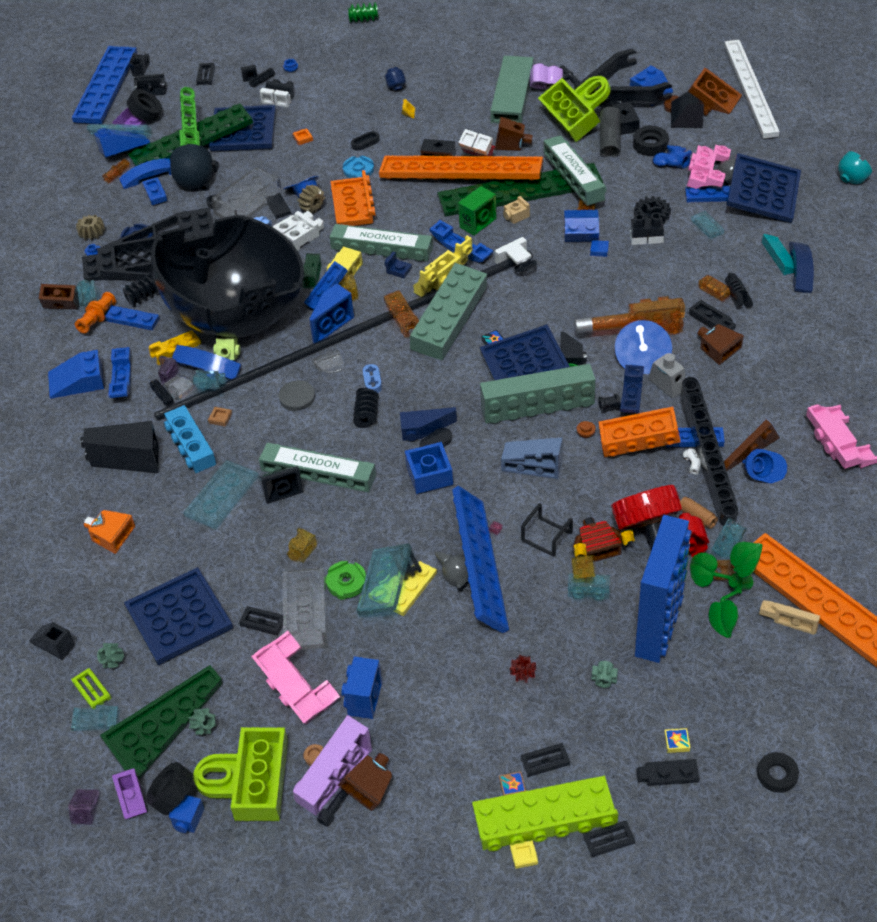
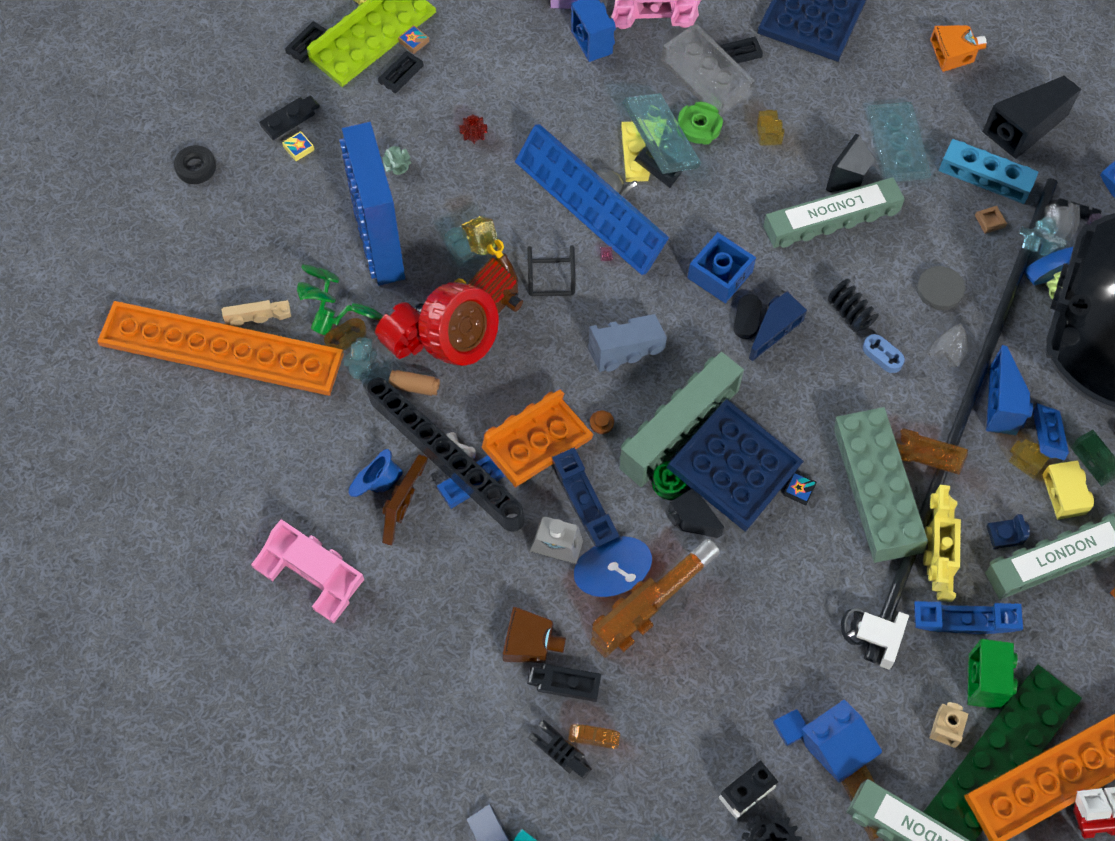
camera: 140 degrees right, 15 degrees up
(609, 403) = (600, 469): black bush -> none

